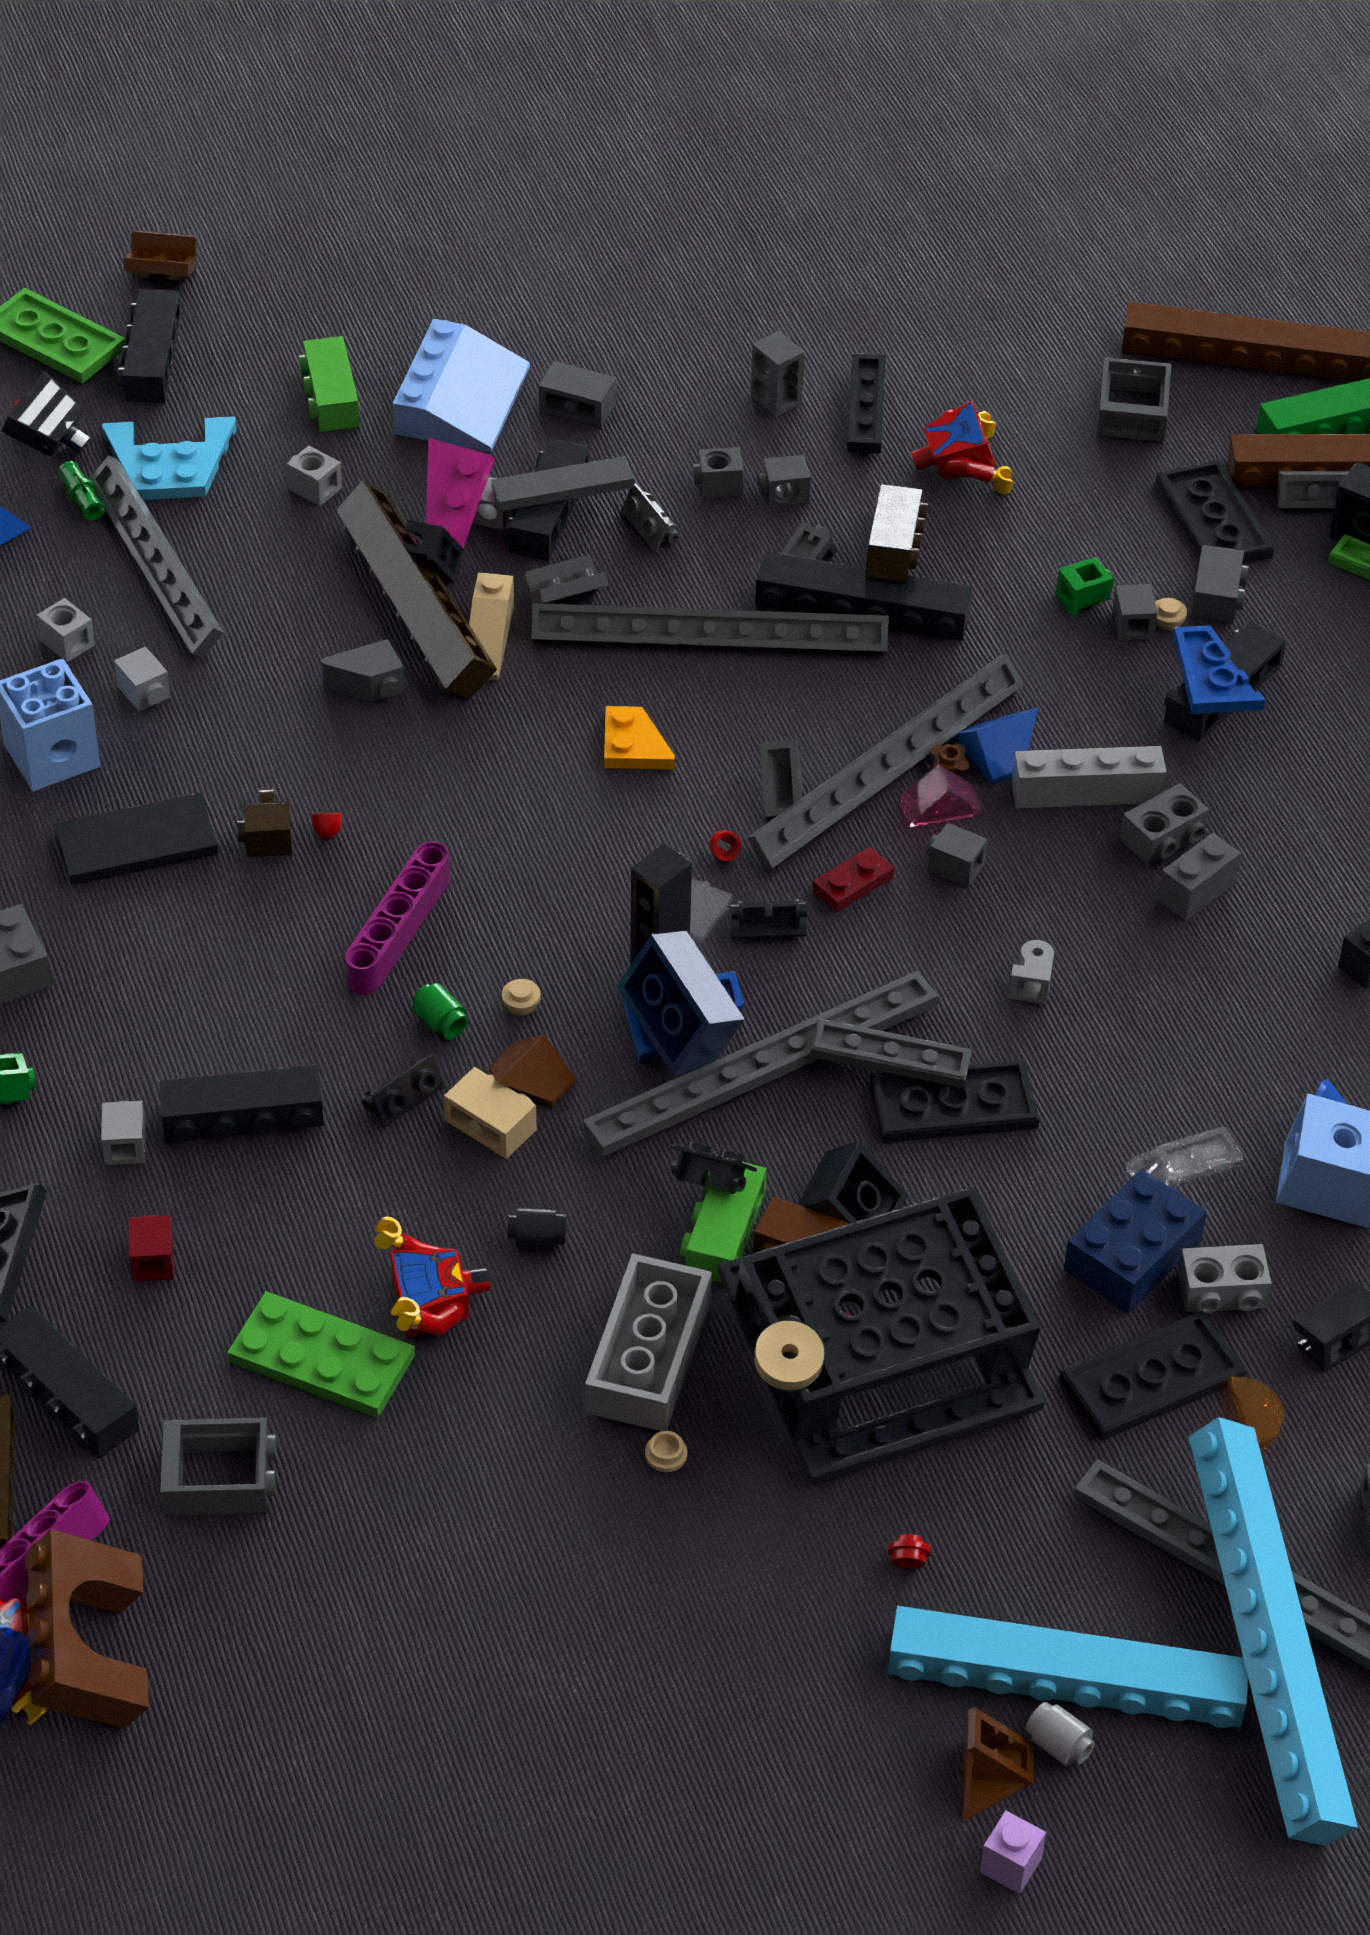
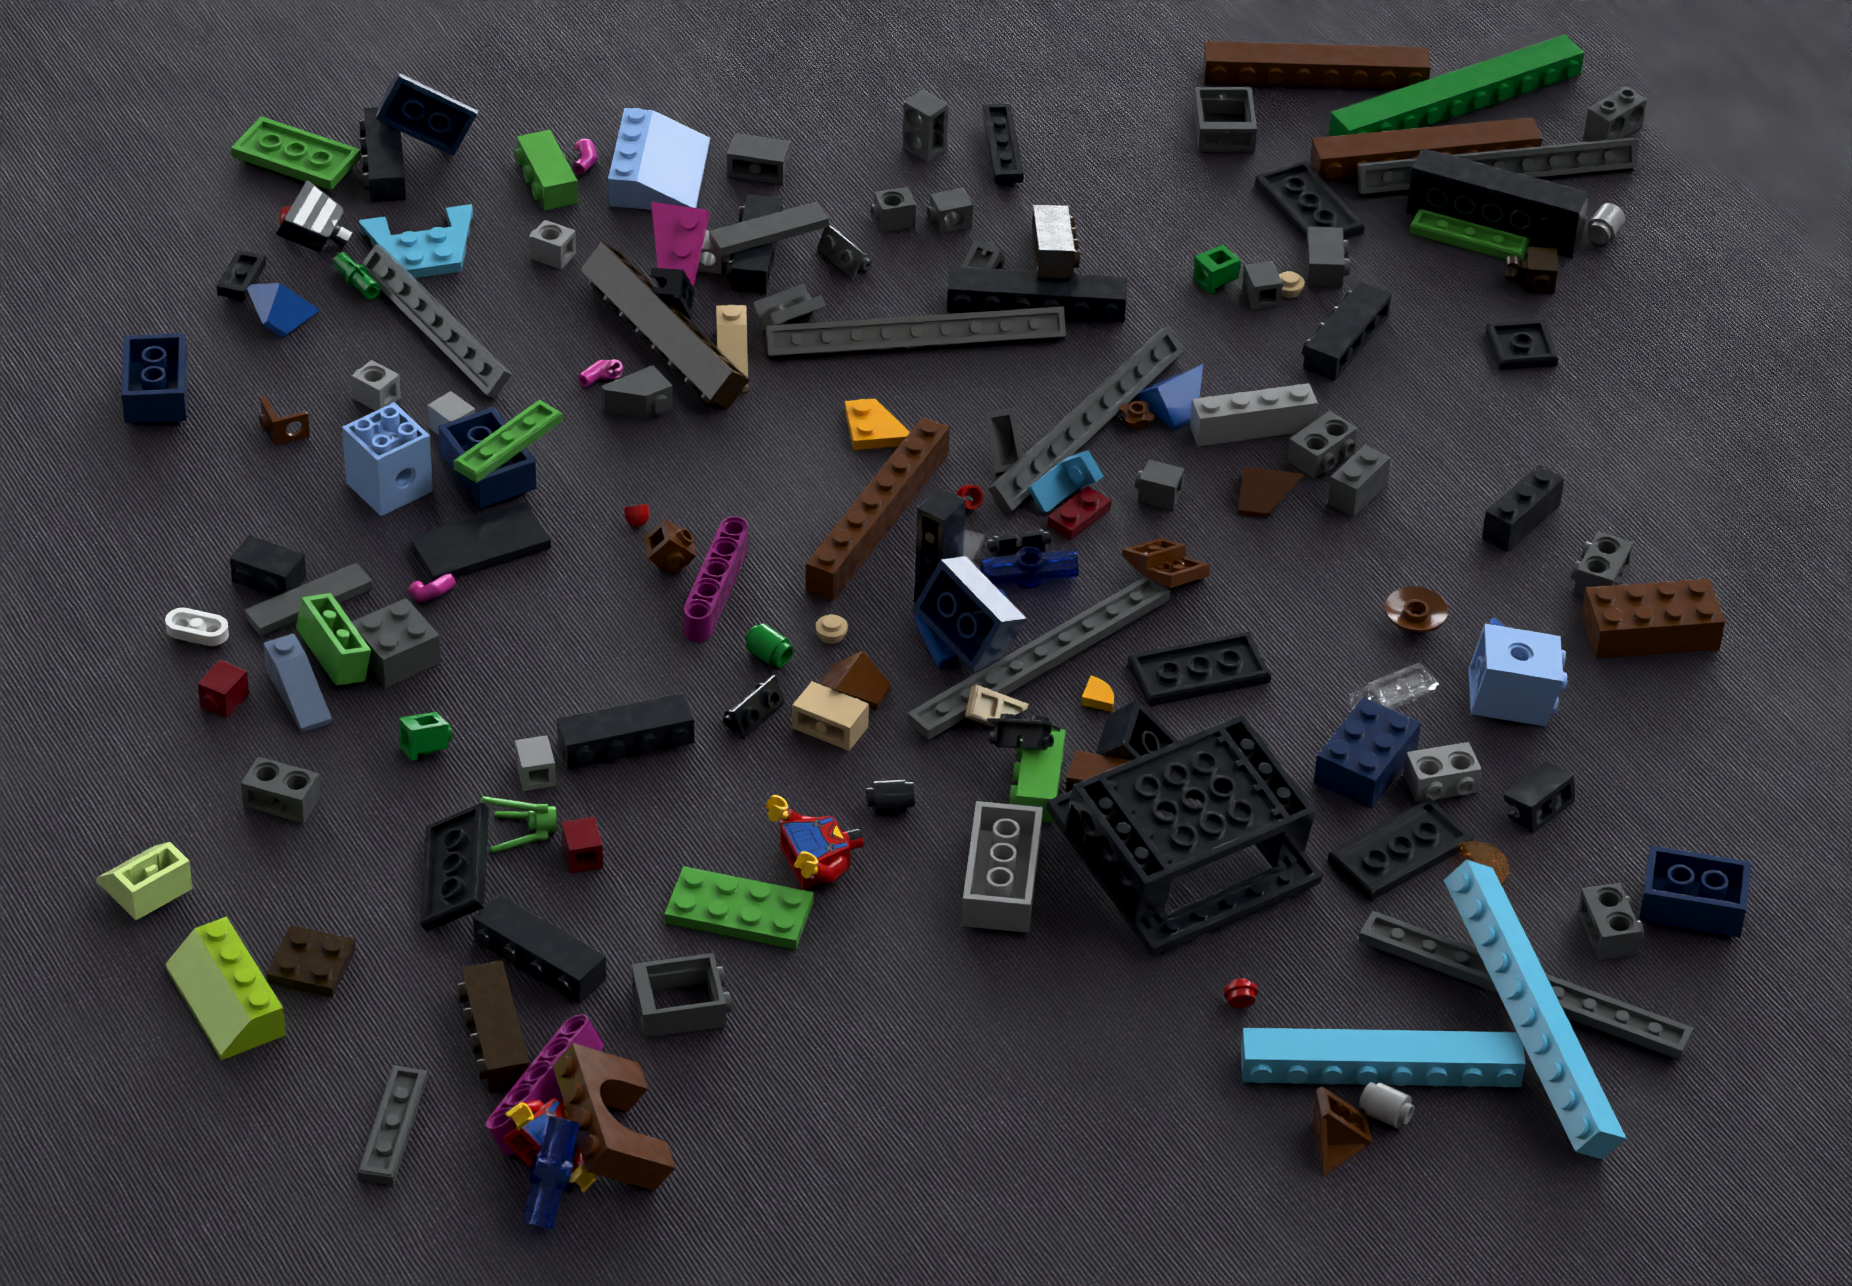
camera: 10 degrees left, 5 degrees down
(66, 892) = (433, 589): none -> dark pink arm
(111, 1207) = (540, 818): none -> bright green plant
(161, 254) = (369, 77): reddish brown bracket -> none
(167, 733) = (506, 481): none -> dark blue brick
(189, 718) = (507, 441): none -> bright green tile
(202, 305) = (425, 114): none -> dark blue slope
(266, 827) = (588, 521): dark brown brick -> none
(331, 637) = (601, 370): none -> dark pink arm
(351, 871) = (669, 546): none -> reddish brown brick
(383, 373) = (588, 156): none -> dark pink arm
(609, 849) = (877, 509): none -> reddish brown brick
(666, 1451) = (1033, 945): tan plate -> none
(684, 1123) = (990, 704): none -> tan tile
(775, 945) = (1030, 567): none -> clear blue piece
(784, 1372) = (1122, 862): tan piece -> none
(822, 1121) = (1098, 695): none -> light orange tile
(840, 837) = (1064, 479): none -> dark azure bracket
(890, 1053) = (1143, 636): dark grey tile -> none
(939, 798) = (1135, 444): clear pink slope -> none
(940, 958) = (1165, 562): none -> reddish brown slope
(962, 449) = (1091, 171): red torso -> none
(1012, 1852) = (1369, 1187): lavender brick -> none
(1033, 975) = (1241, 567): light grey leg -> none
(1080, 876) = (1264, 490): none -> reddish brown slope
(1210, 675) = (1337, 325): blue wing -> none
(1235, 1054) = (1416, 609): none -> reddish brown dish

